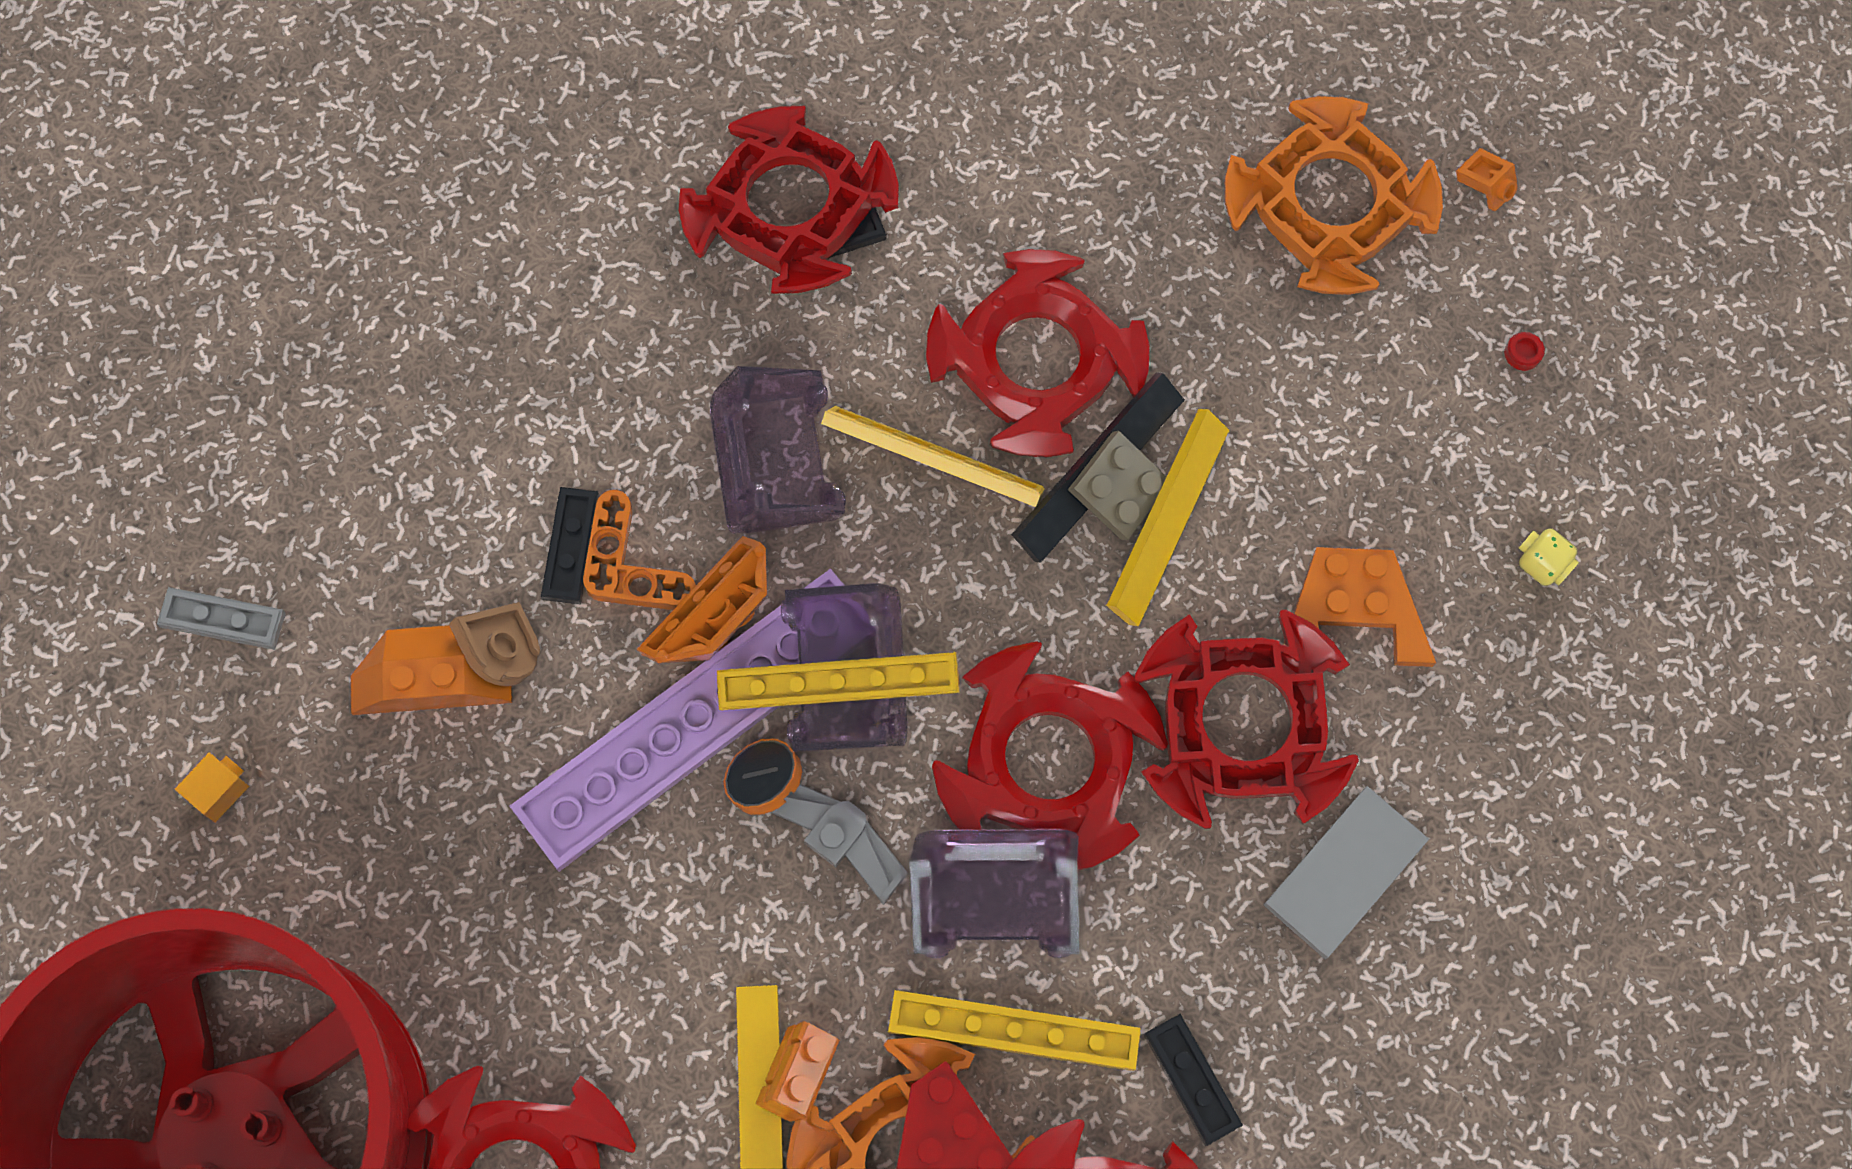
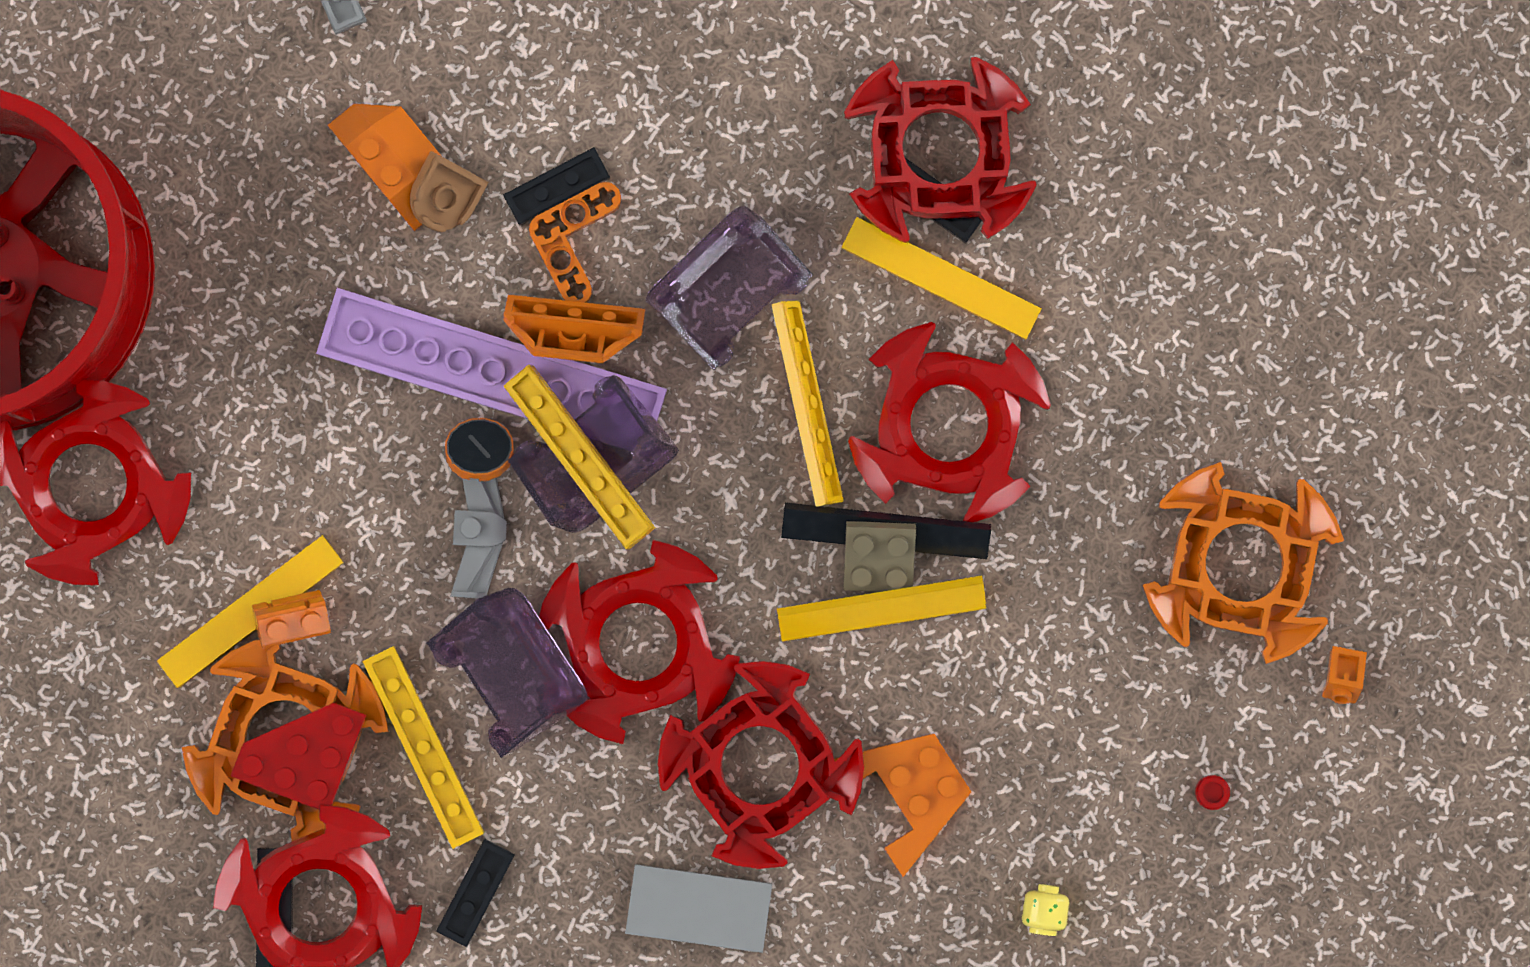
camera: 60 degrees right, 15 degrees up
(213, 786) = (208, 73): light orange brick -> none
(901, 276) = (941, 278): none -> yellow tile

